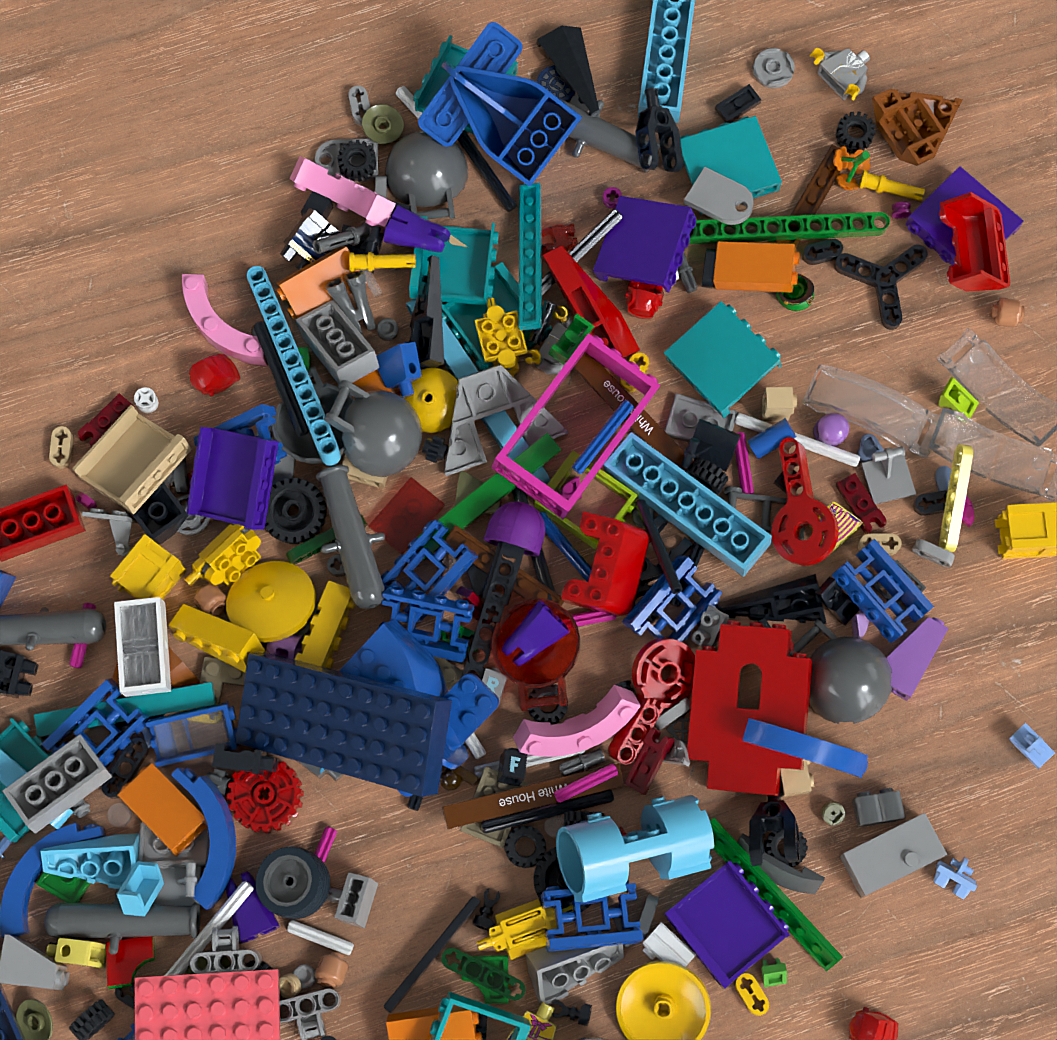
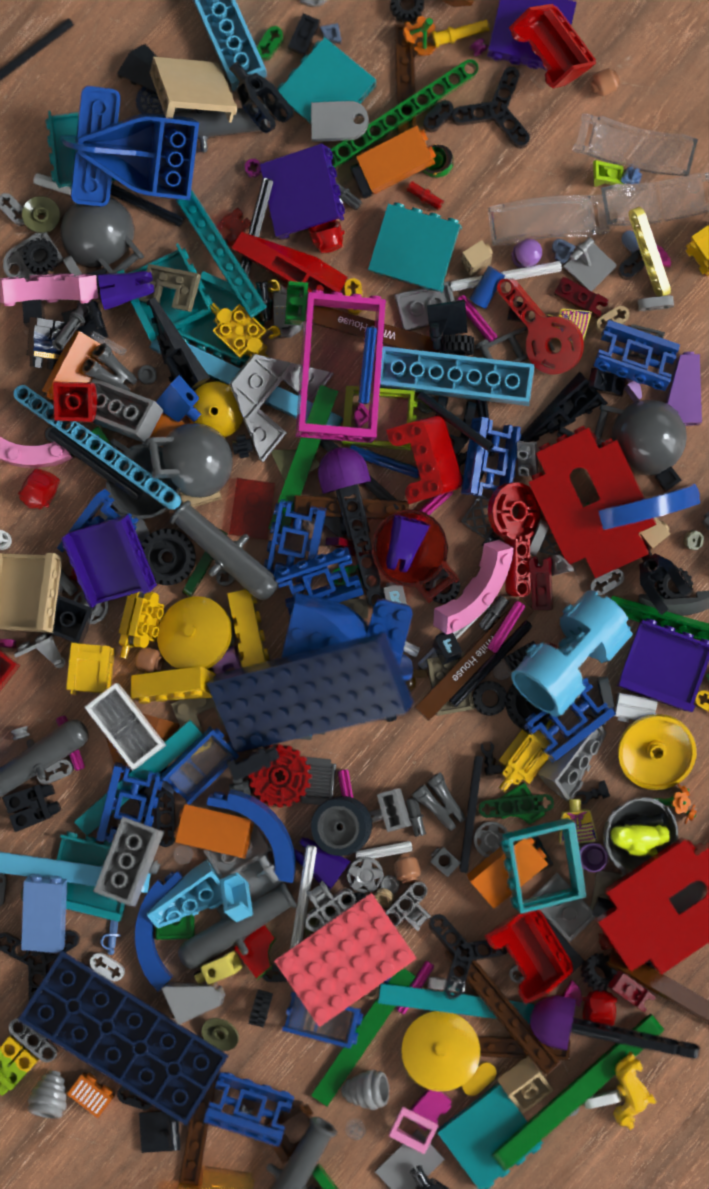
camera: 25 degrees left, 10 degrees up
(40, 595) = (20, 733): none -> light grey bush
(49, 659) = (57, 776): none -> light grey beam
(285, 949) = (365, 874): none -> light grey wheel
(299, 306) = (74, 401): none -> red brick
(304, 827) = (321, 782): none -> dark grey window
(371, 261) = (106, 331): yellow pin -> none
(374, 922) = (415, 817): none -> dark grey axle
(380, 995) = (450, 867): none -> dark grey brick
(417, 905) = (438, 785): none -> dark grey piece
(434, 990) = (489, 839): none -> light grey wheel
(474, 258) = (182, 281): none -> dark tan plate
(599, 85) = (191, 86): none -> tan panel
(625, 646) = (472, 508): none -> dark grey window
(700, 94) = (273, 46): none -> green beam
(718, 796) = (604, 578): none -> light grey beam
(763, 318) = (425, 195): none -> red pin
(766, 118) = (331, 33): none -> sand blue tile
(843, 734) = (667, 478): none -> black tile
(982, 416) = (631, 176): none -> medium blue plate

